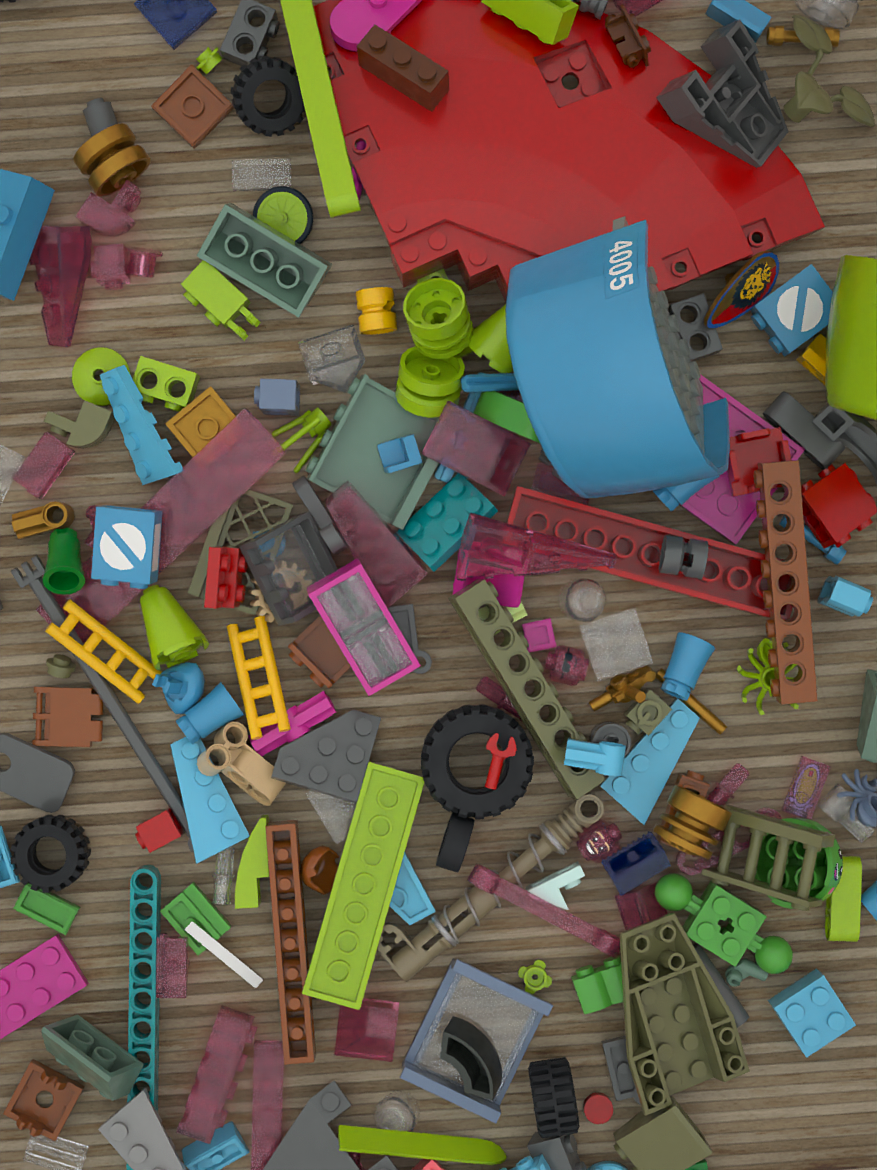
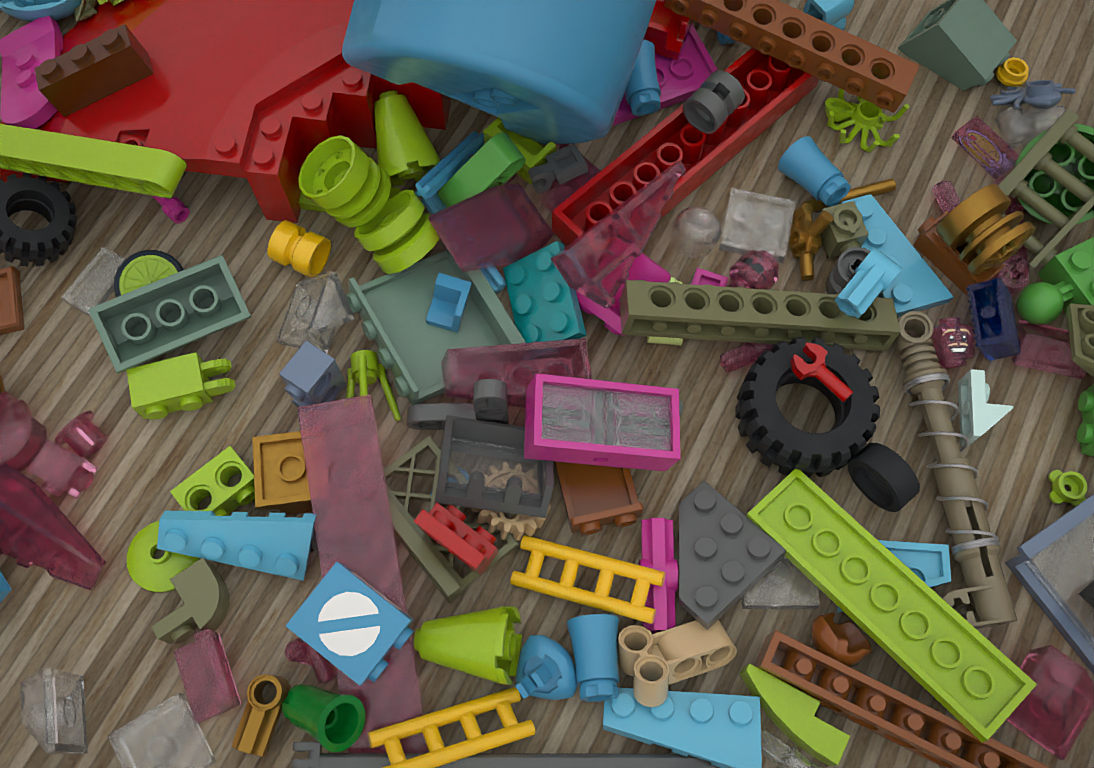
camera: 60 degrees left, 20 degrees down
(494, 884) = (964, 449): clear pink piece -> none

